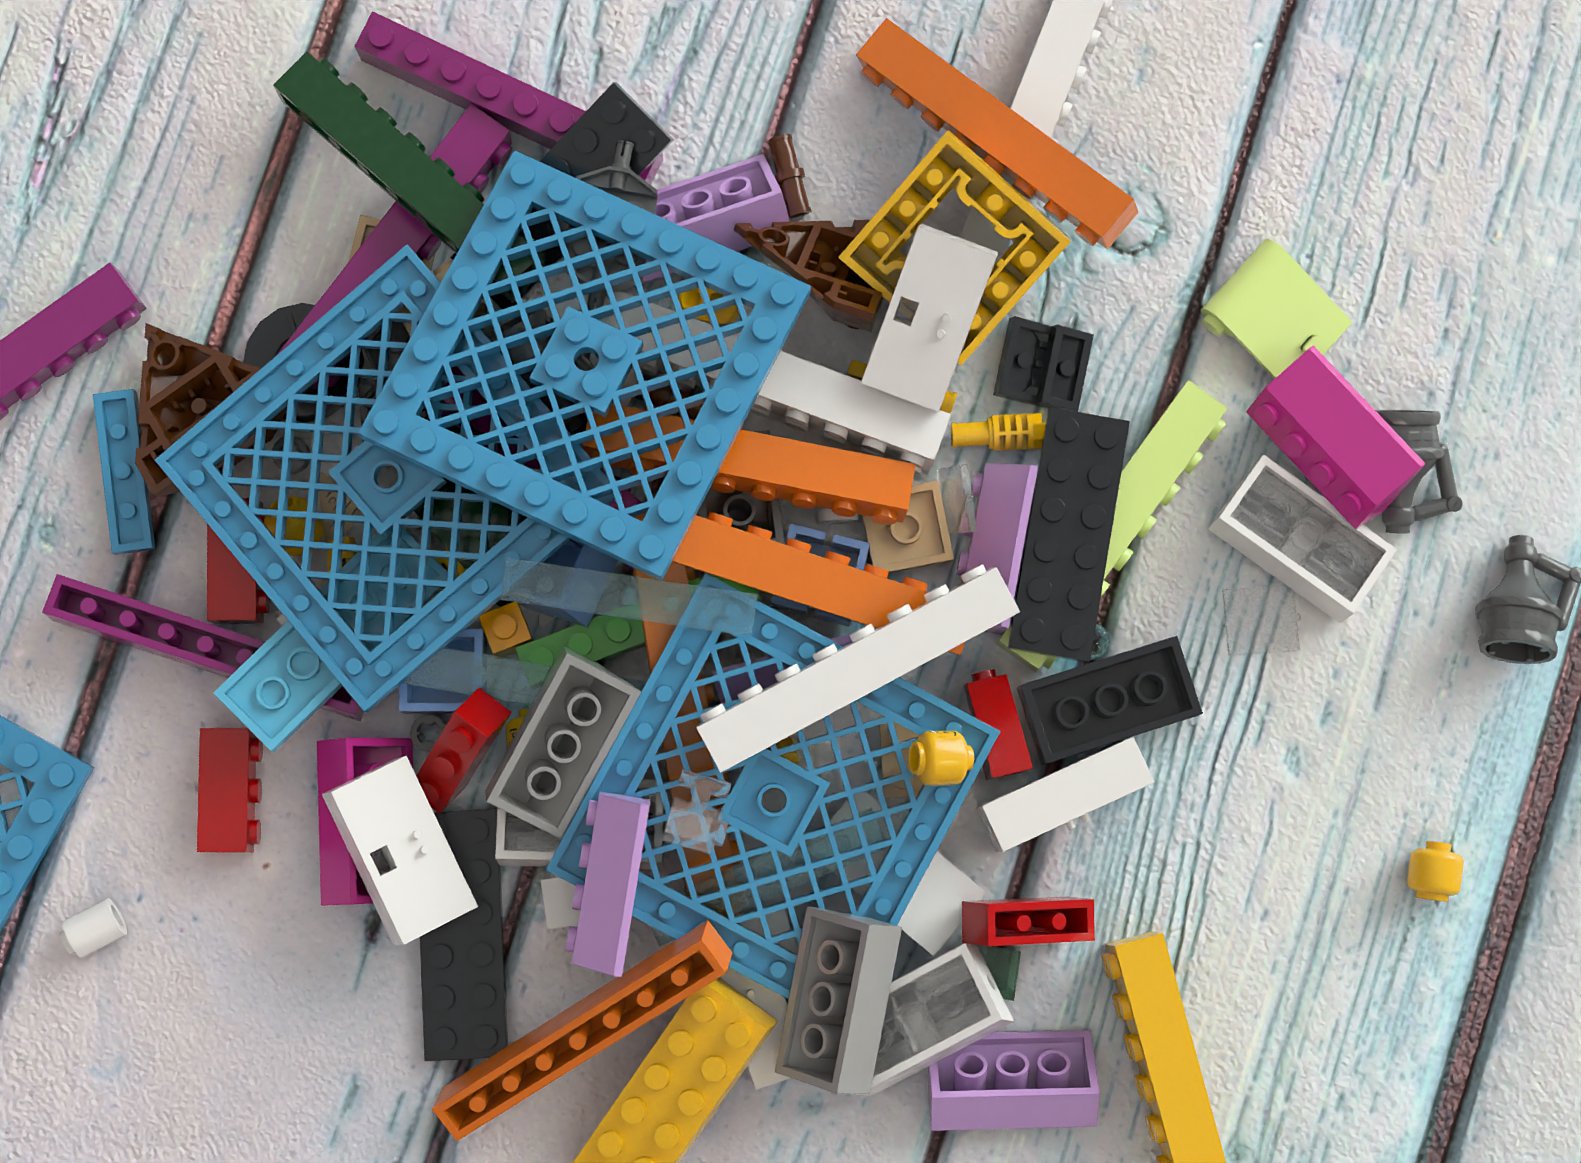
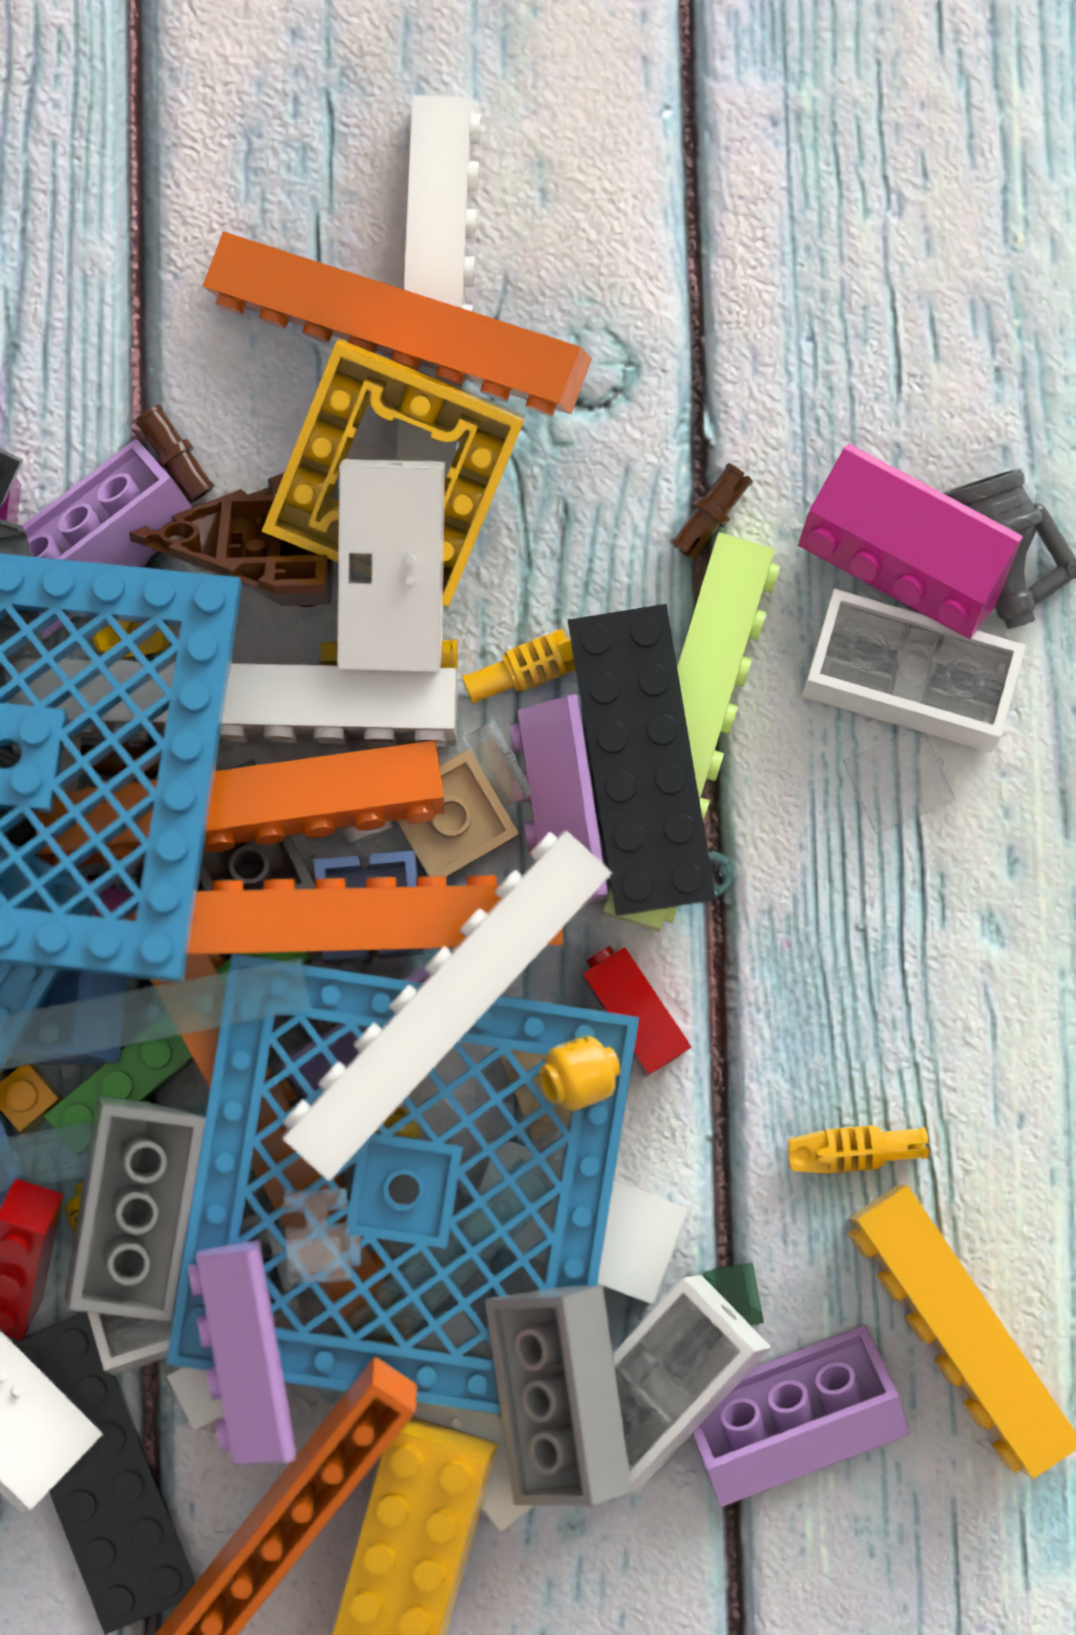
camera: 15 degrees left, 0 degrees up
(1028, 921) = (748, 1225): red brick -> none
(1043, 364) = (545, 571): black slope -> none
(1065, 795) = (741, 1063): white brick -> none
(1109, 700) = (754, 935): black brick -> none
(1129, 891) = (854, 1149): none -> yellow hinge
(1187, 363) = (711, 511): none -> reddish brown pin
(1274, 310) = (790, 415): yellowish green door -> none

